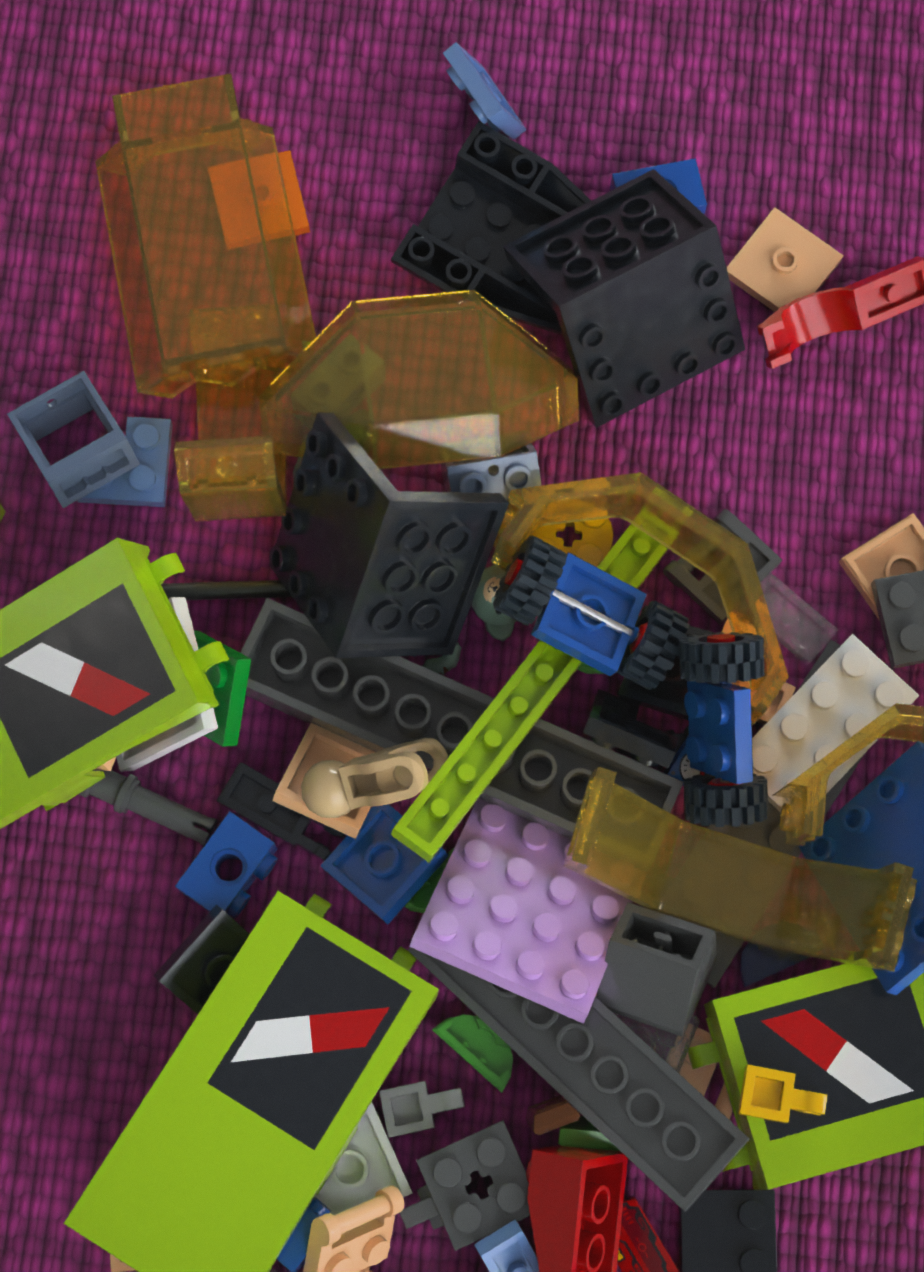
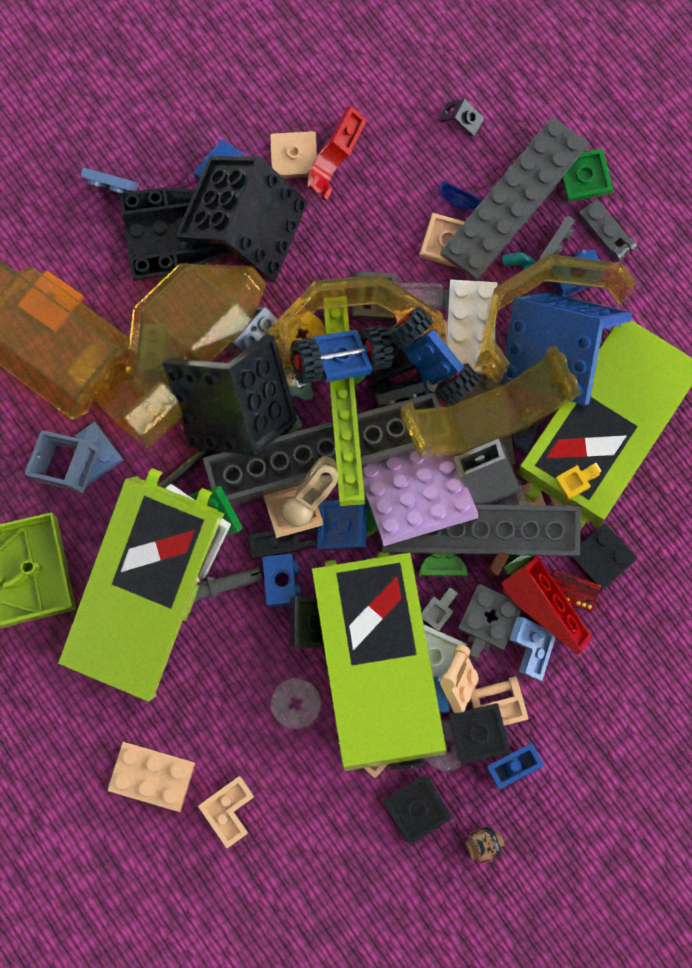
camera: 35 degrees left, 0 degrees up
(74, 1080) = (309, 708): none -> clear plate

